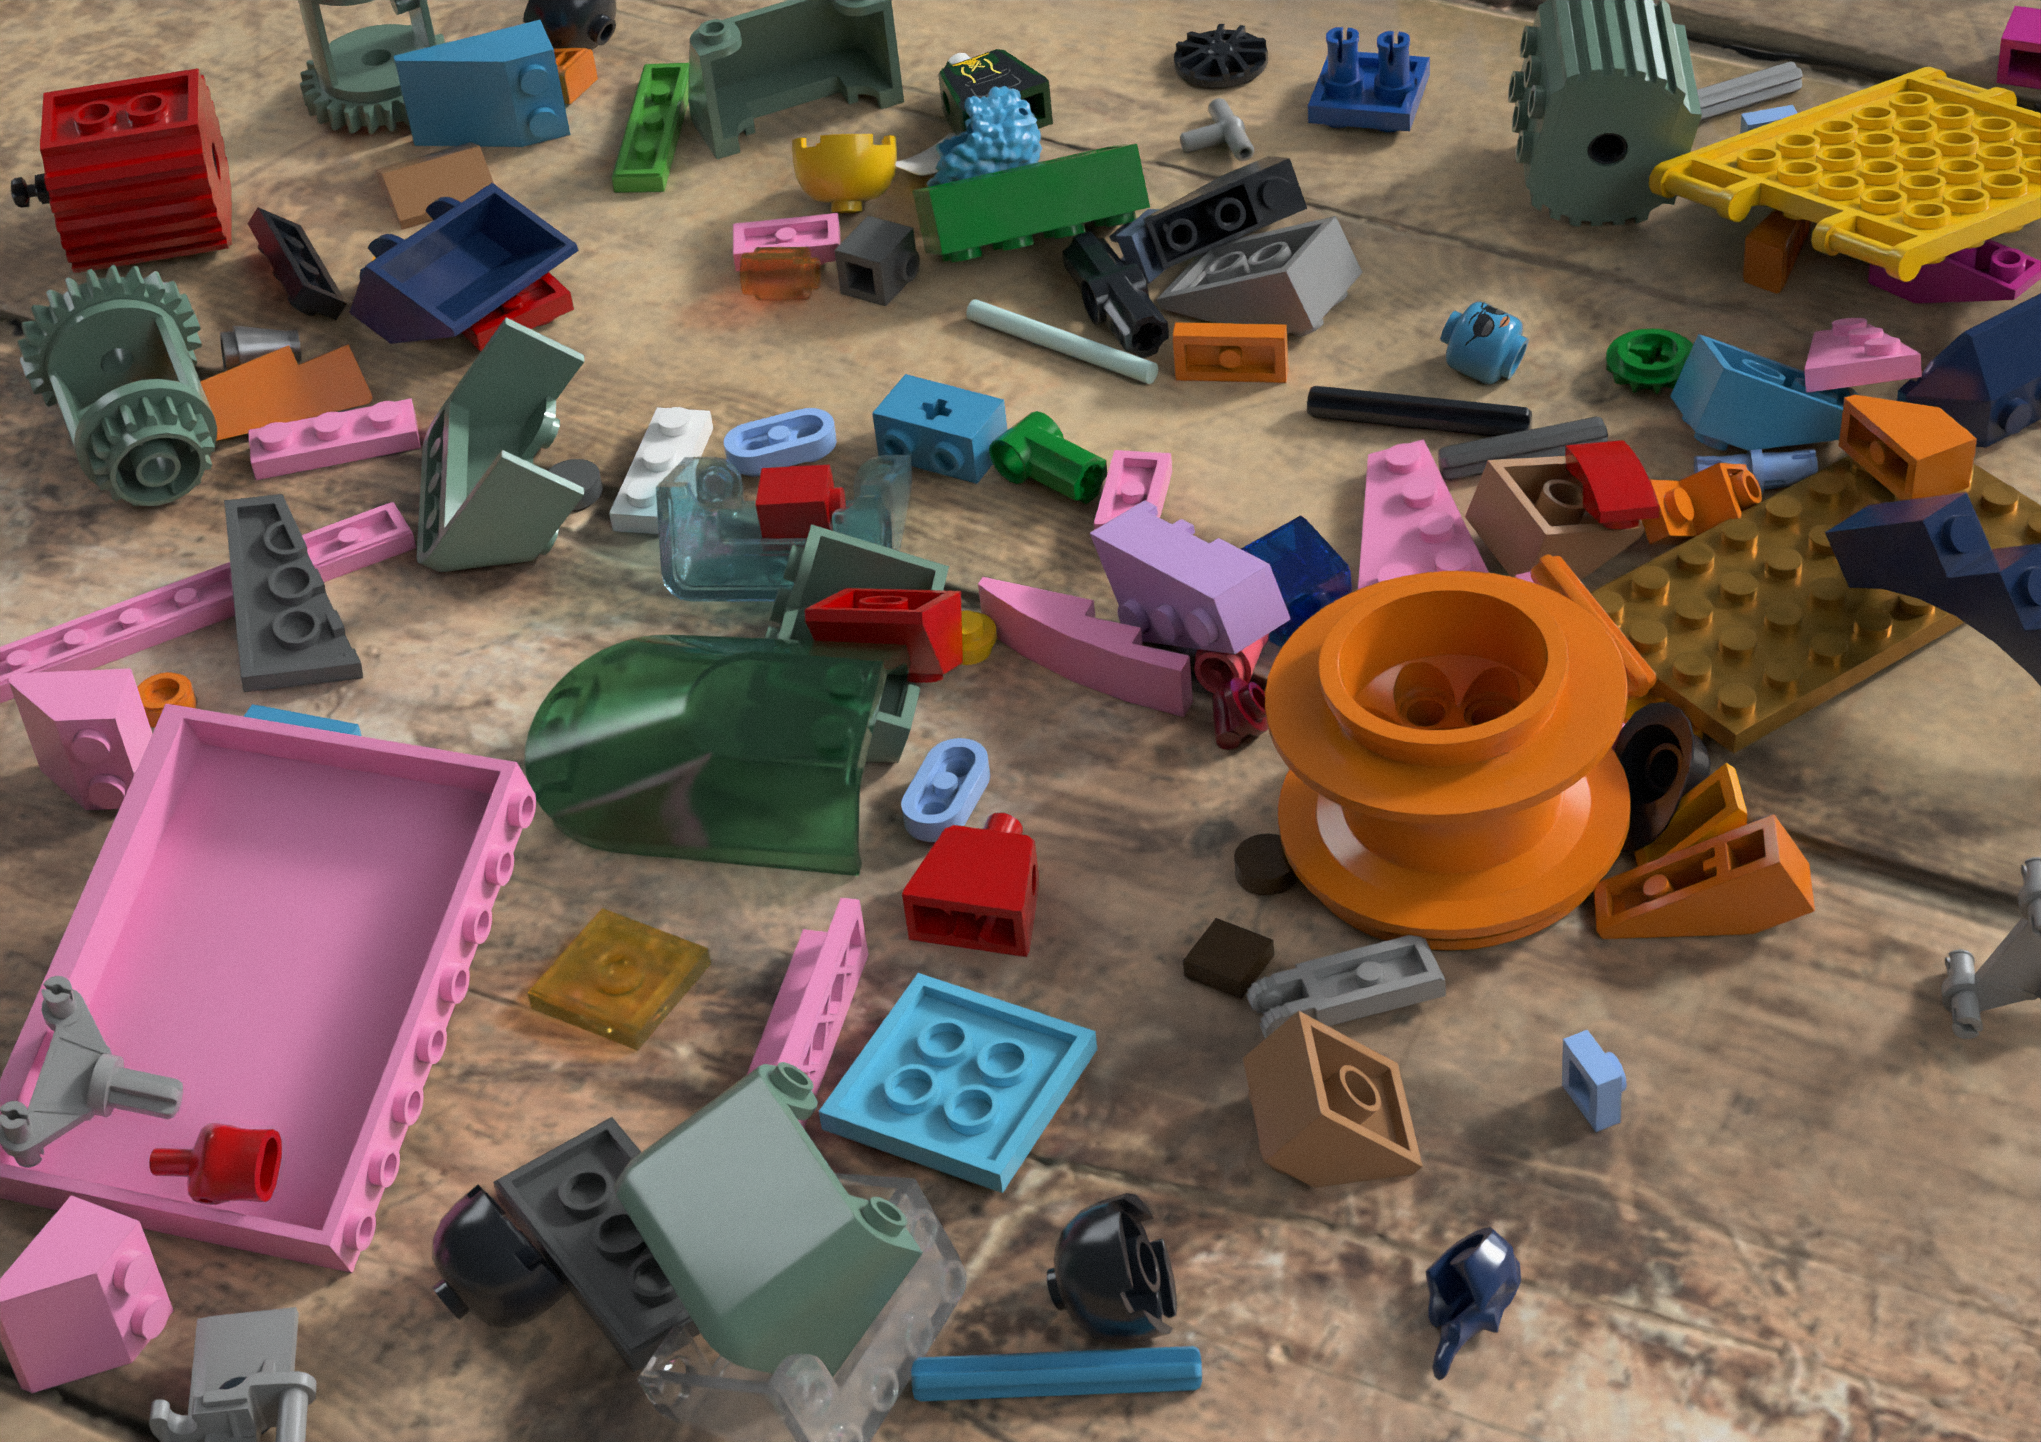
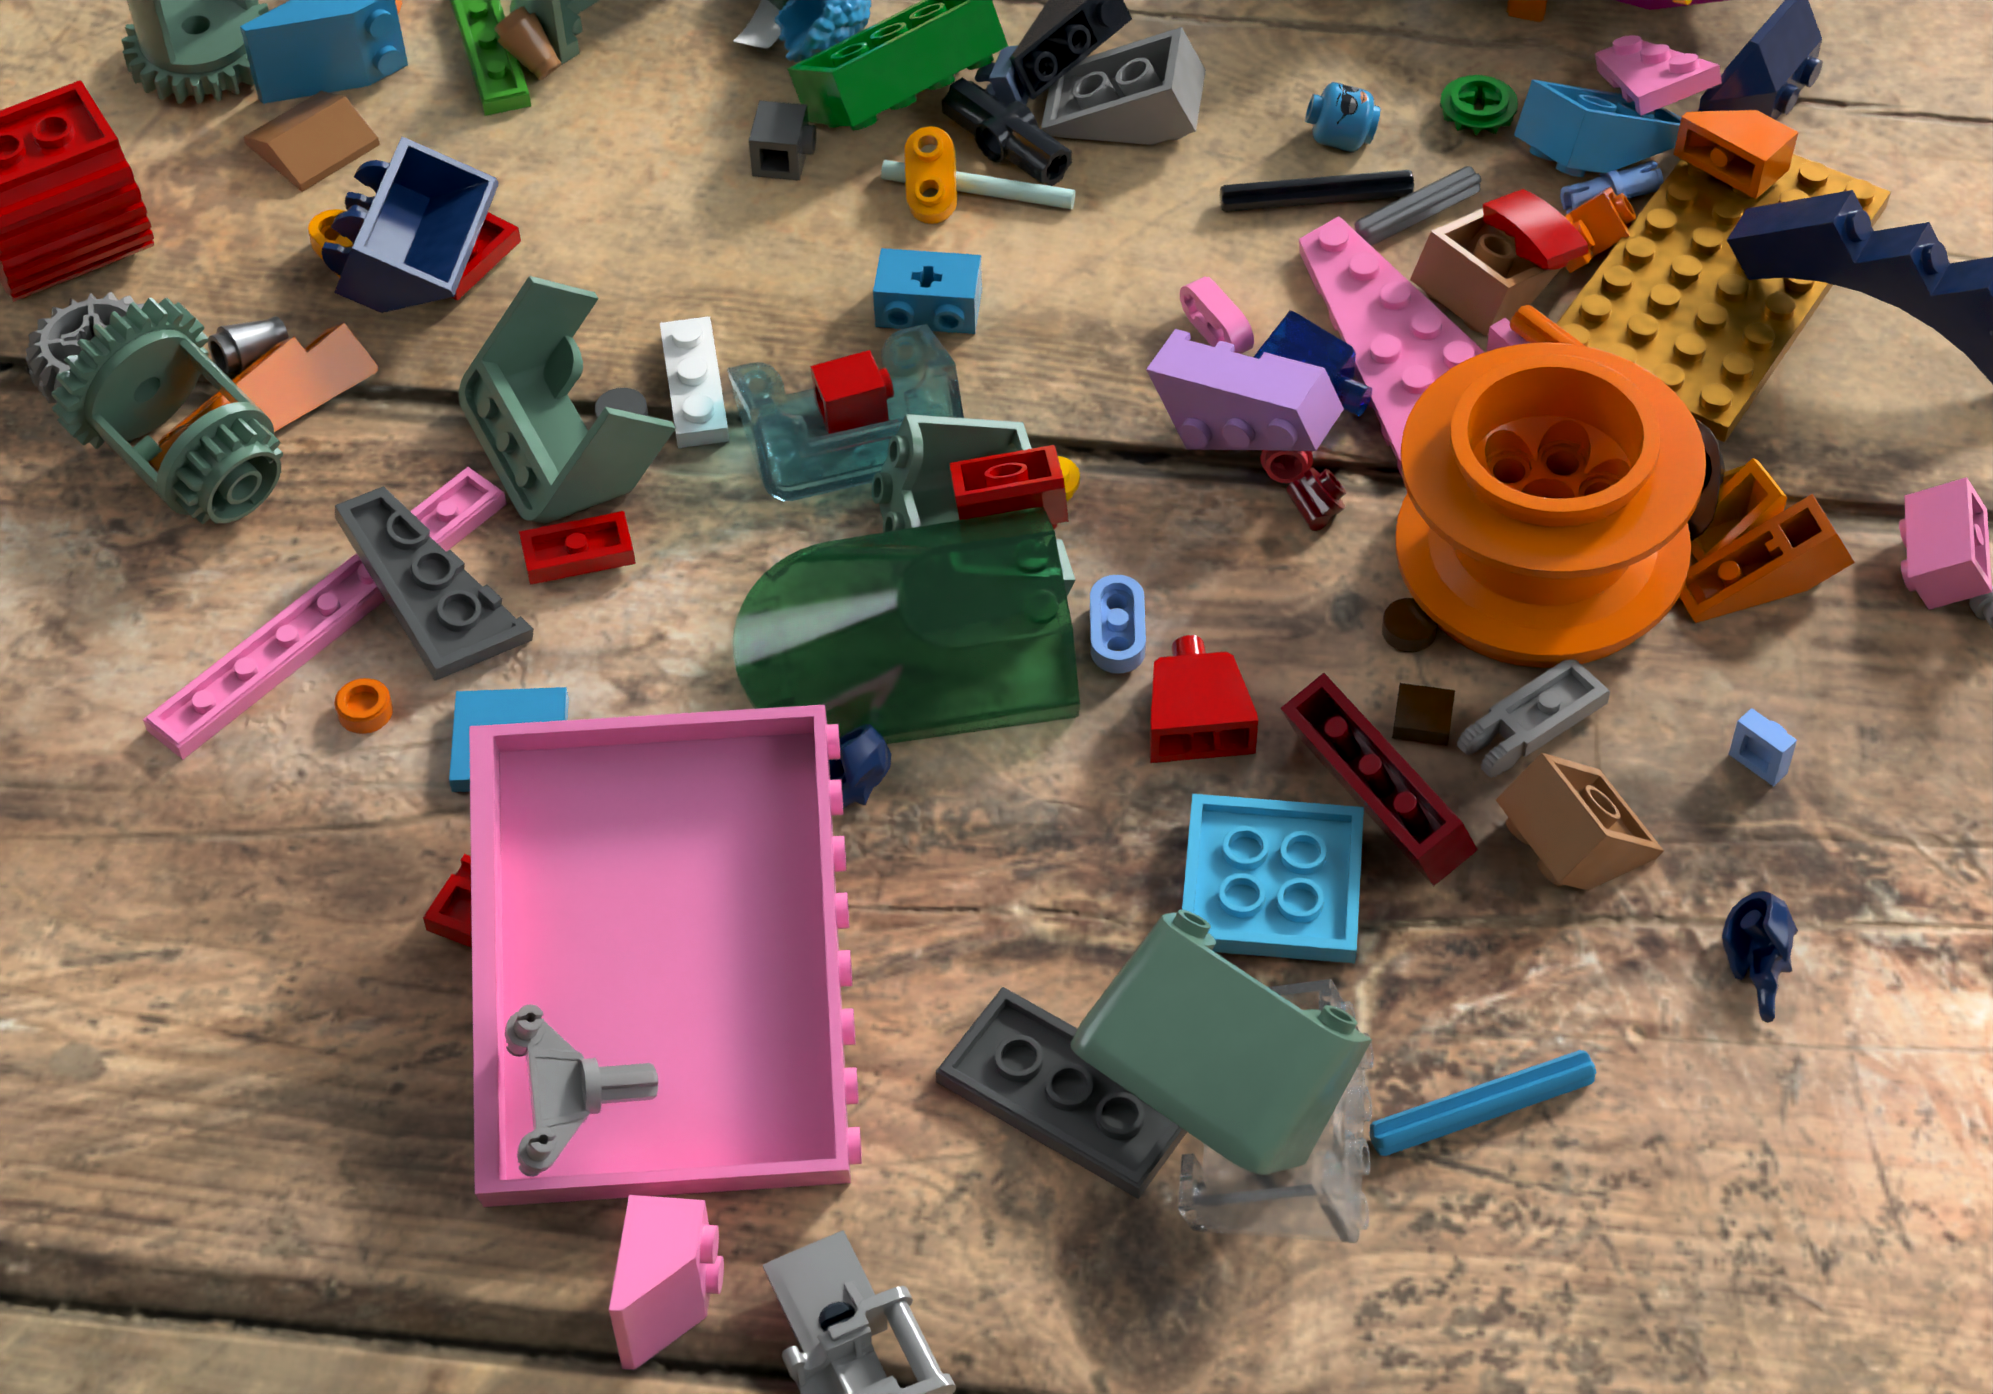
camera: 25 degrees left, 10 degrees up
(85, 730) = (334, 762): bright pink slope -> none
(225, 1164) = (722, 1125): red piece -> none
(296, 265) = (233, 250): black plate -> none
(333, 439) = (369, 416): bright pink plate -> none
(448, 597) = (577, 547): none -> red plate
(491, 1265) = (990, 1144): black cylinder -> none
(585, 869) = (861, 763): none -> dark blue piece
(619, 979) = (931, 862): clear yellow tile -> none
(681, 126) = (527, 41): none -> medium nougat cone
(780, 273) = (699, 169): clear orange brick -> none
(780, 440) = (790, 331): light blue plate -> none
(816, 996) = (1114, 860): bright pink fence -> none
(817, 232) = (684, 137): bright pink plate -> none
(845, 169) = (707, 57): yellow cylinder -> none
(1011, 309) = (930, 171): none -> light orange plate
(1039, 451) = (1021, 294): green piece -> none
(1094, 652) = (1174, 471): bright pink slope -> none
(1112, 1273) = (1491, 1011): black cylinder -> none
(1123, 1007) = (1379, 779): none -> dark red brick
(1132, 479) = (1125, 319): bright pink plate -> none
(1229, 507) = (1216, 315): none -> bright pink beam
(1230, 352) = (1136, 167): orange plate -> none
(1935, 914) = (1946, 544): none -> bright pink brick

